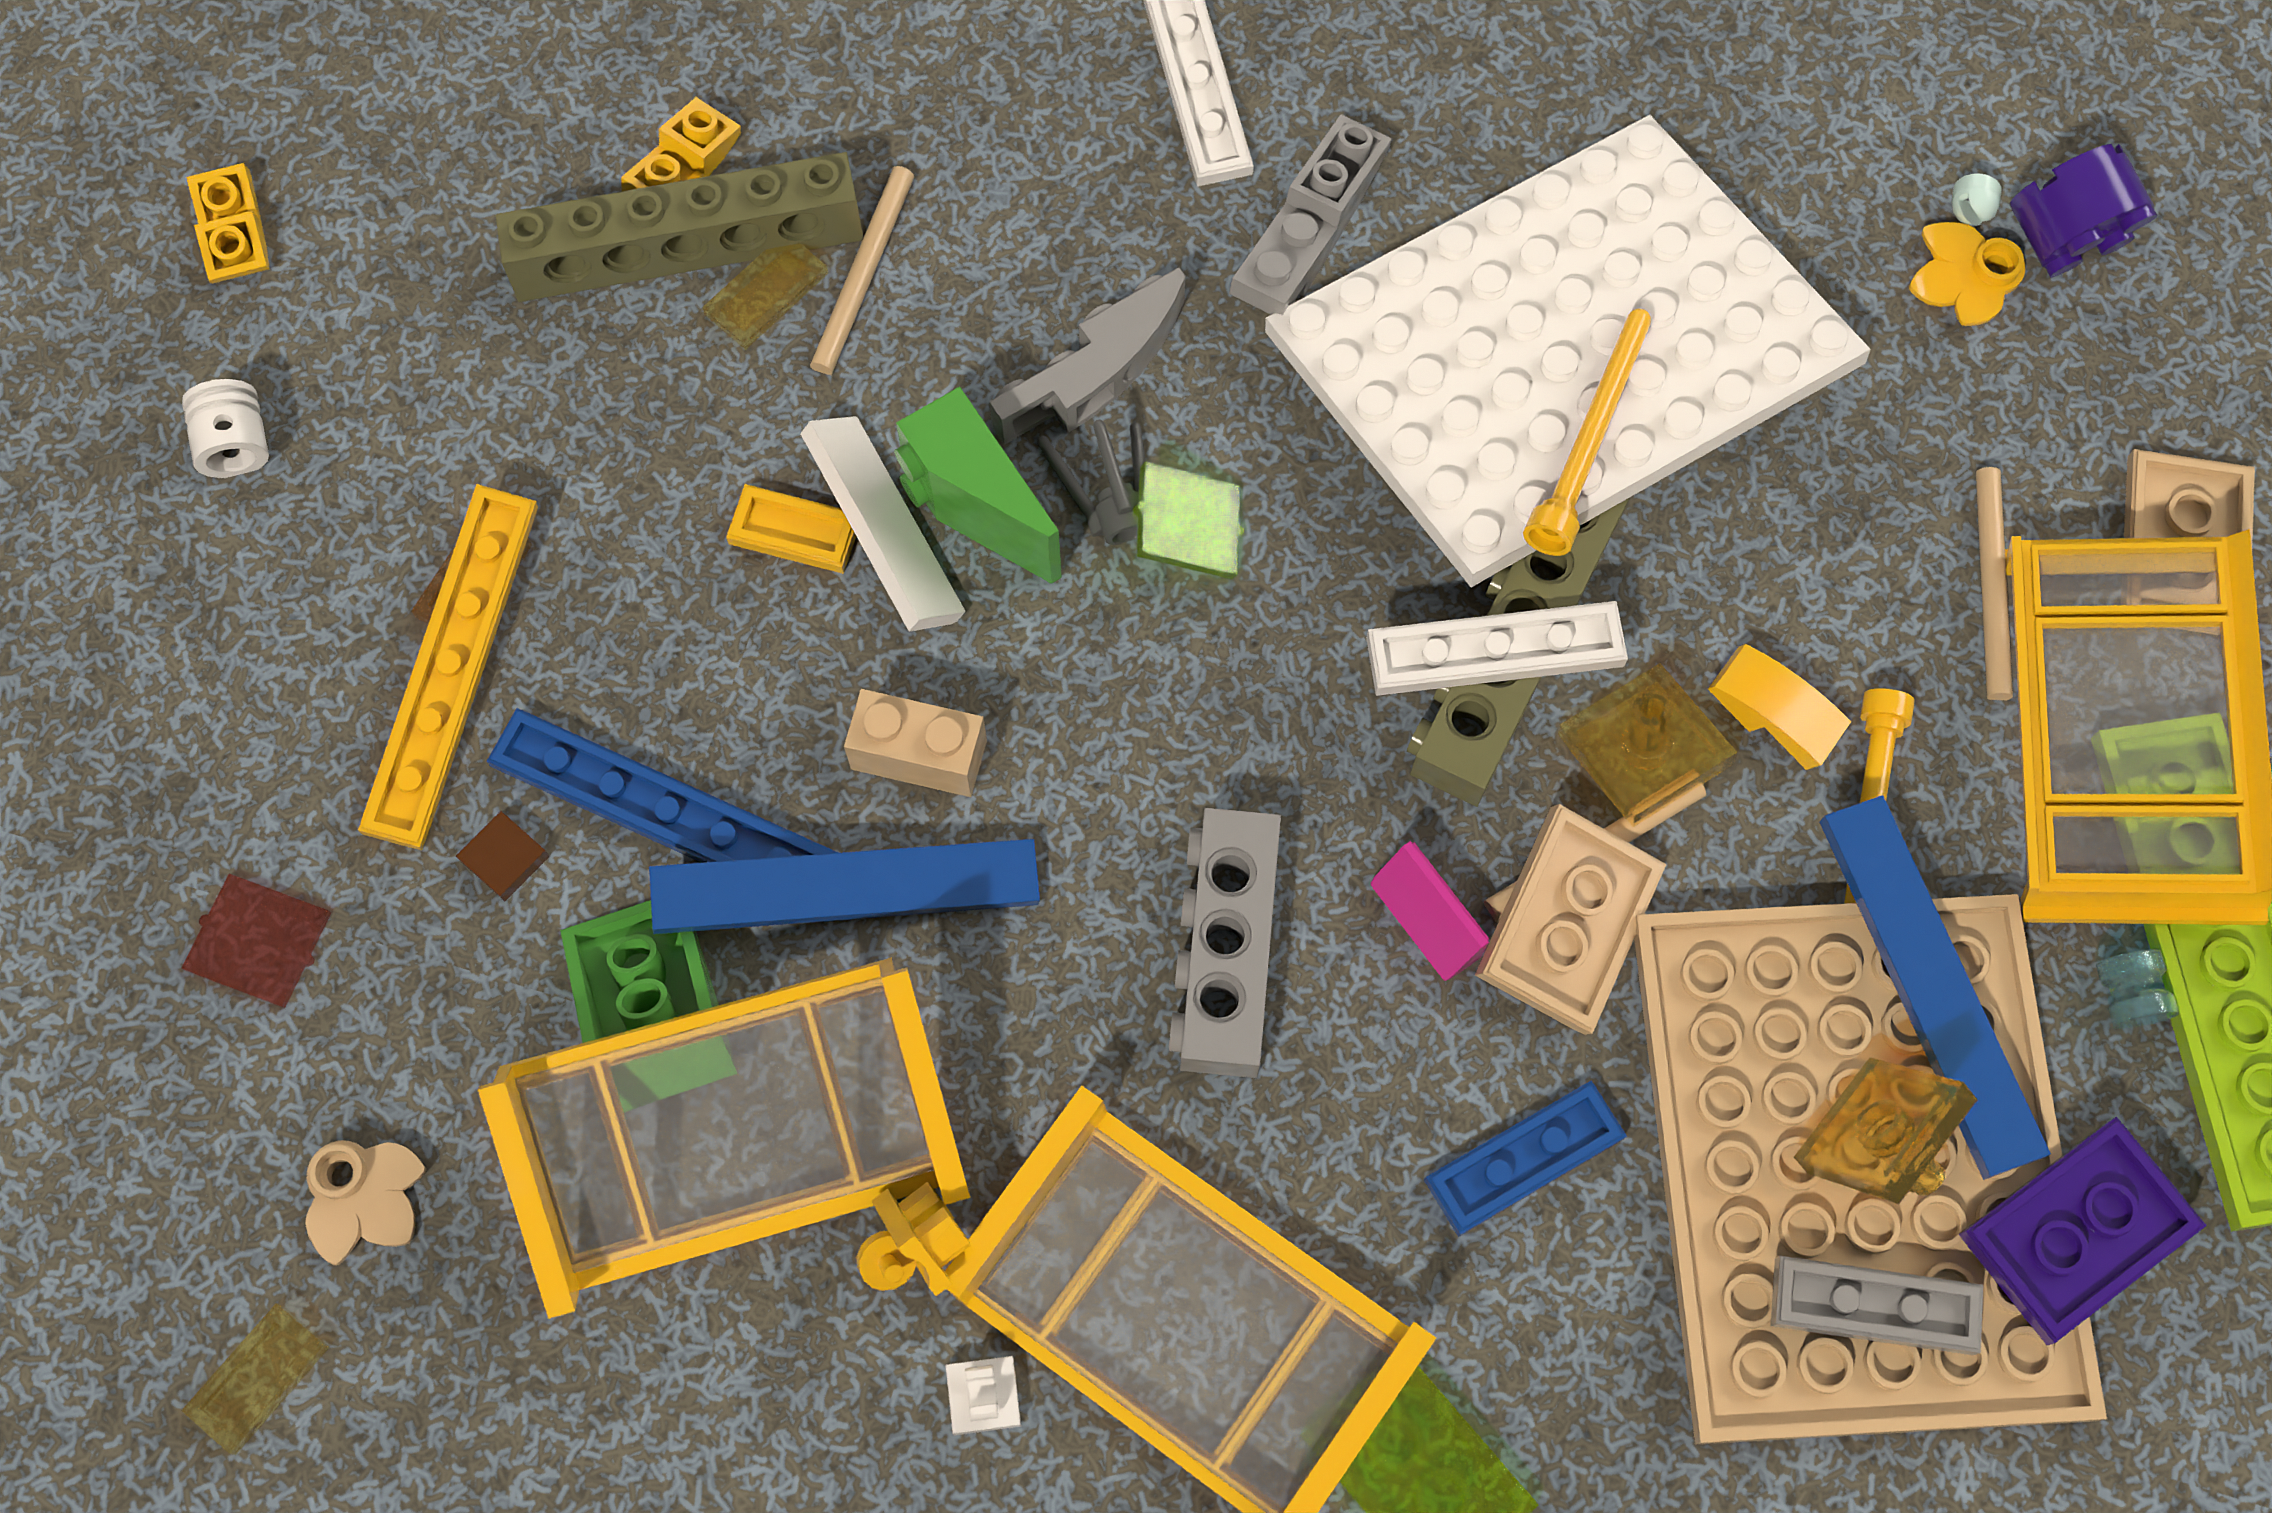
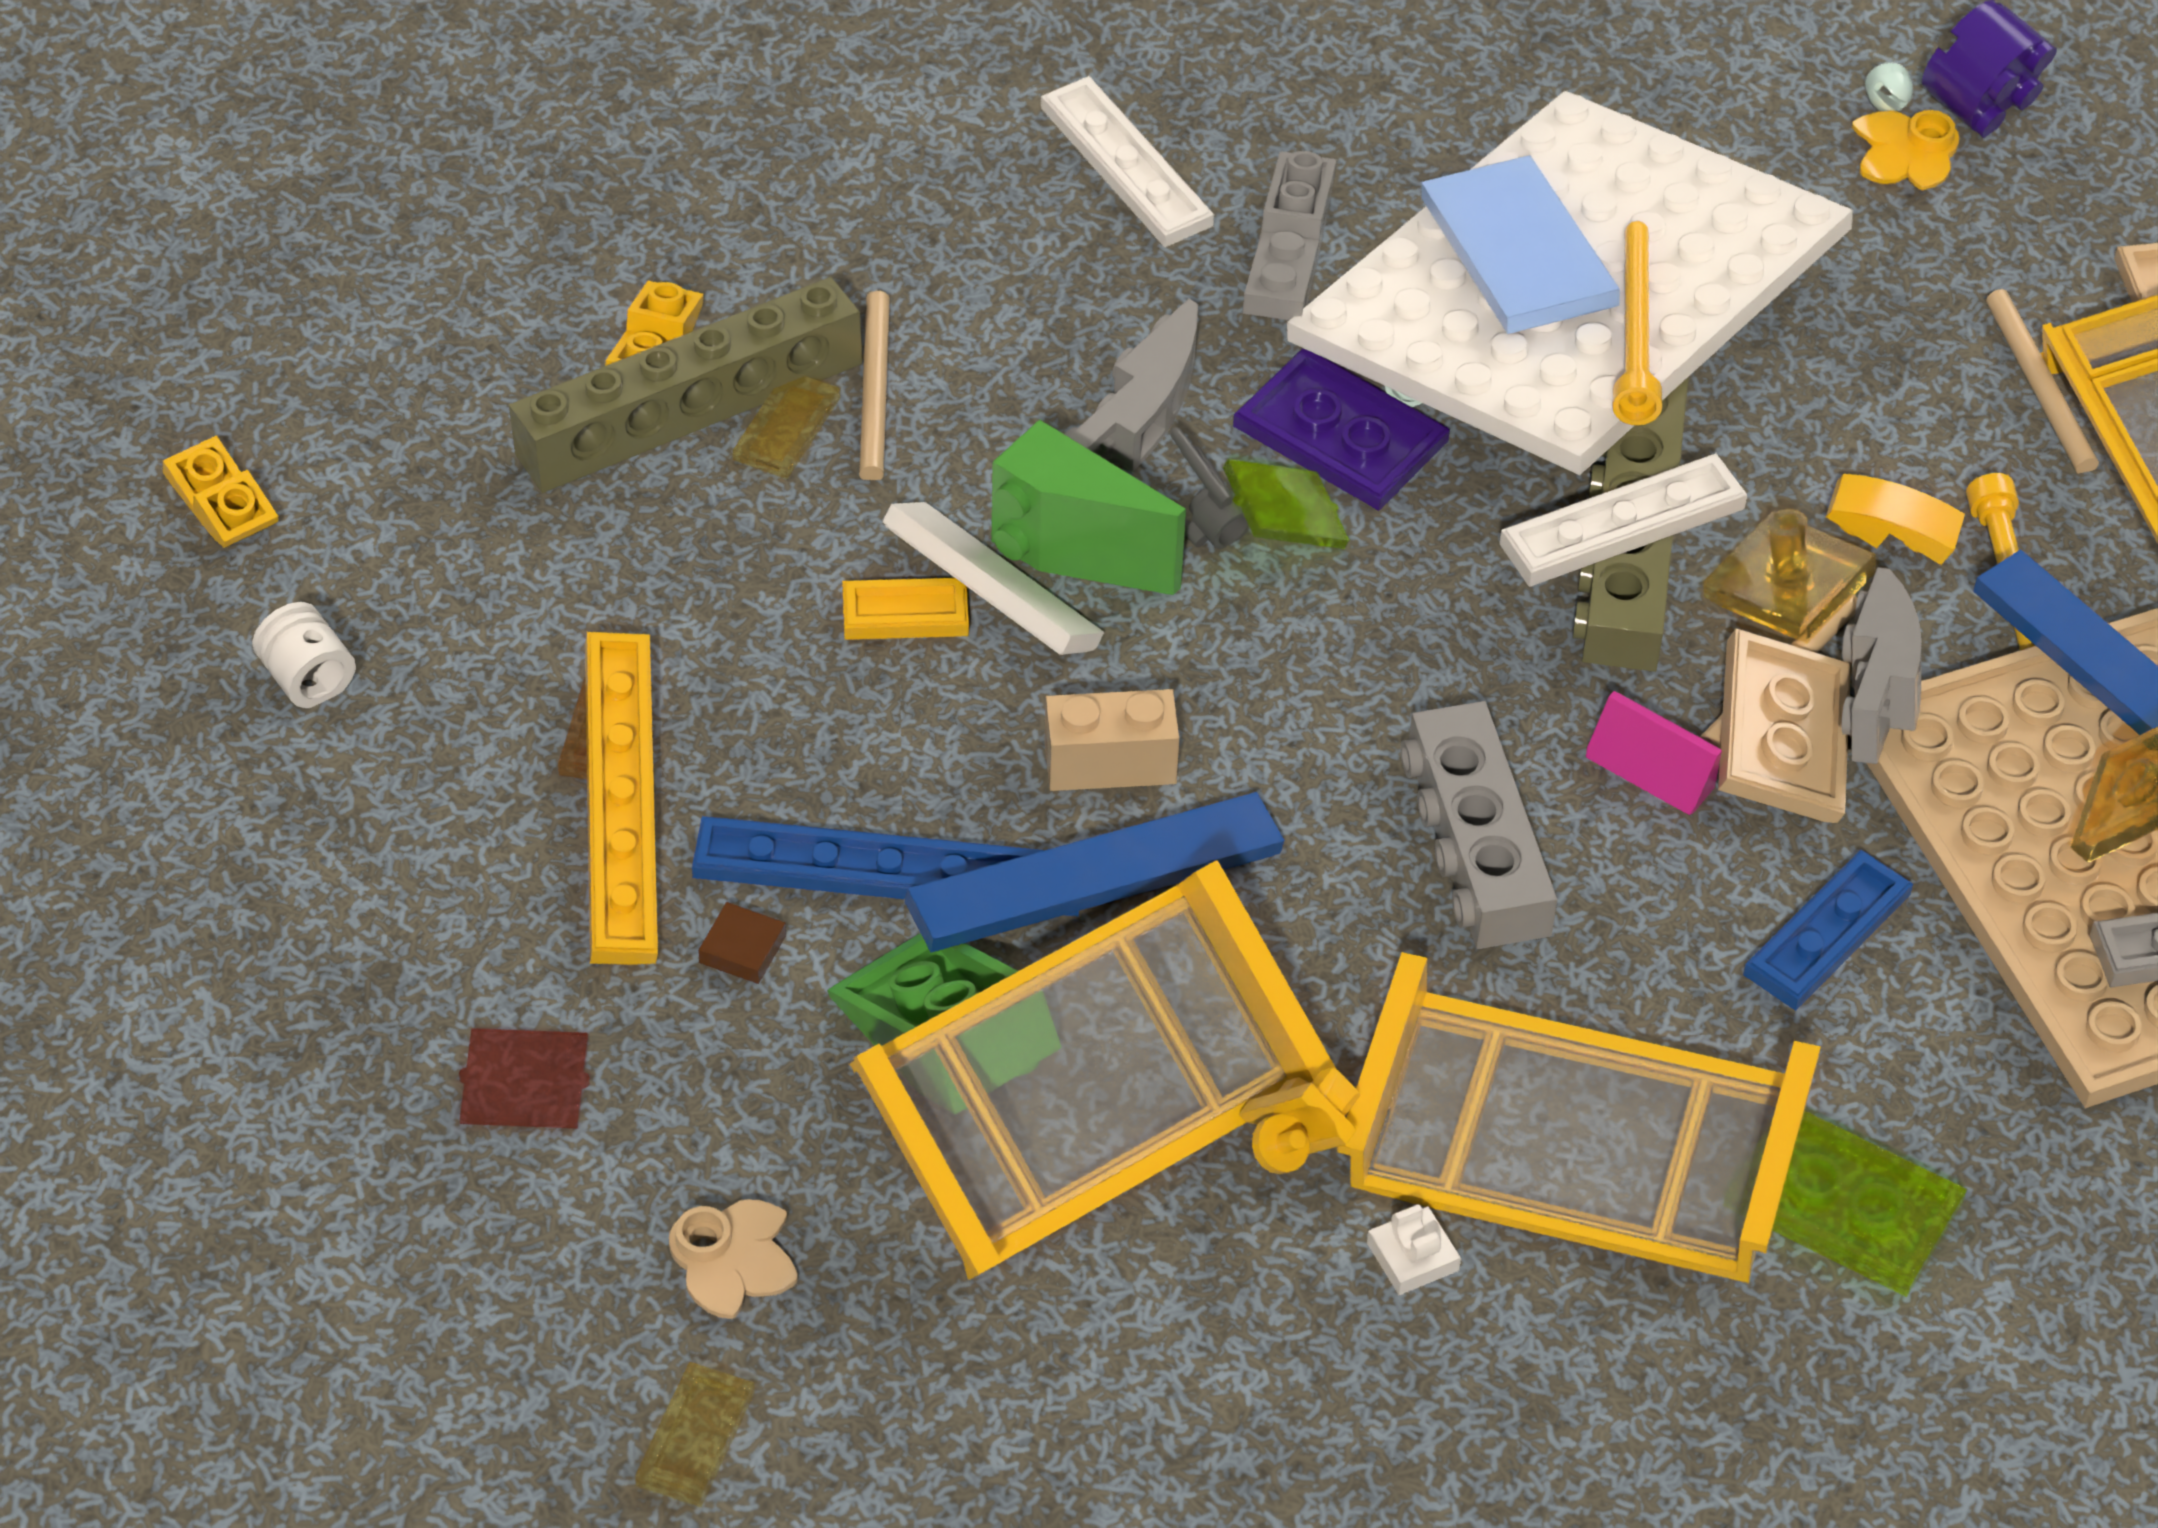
camera: 20 degrees left, 20 degrees down
(1281, 444) = (1341, 428): none -> dark purple tile
(1518, 301) = (1520, 244): none -> light blue tile
(1689, 896) = (1885, 666): none -> light grey slope

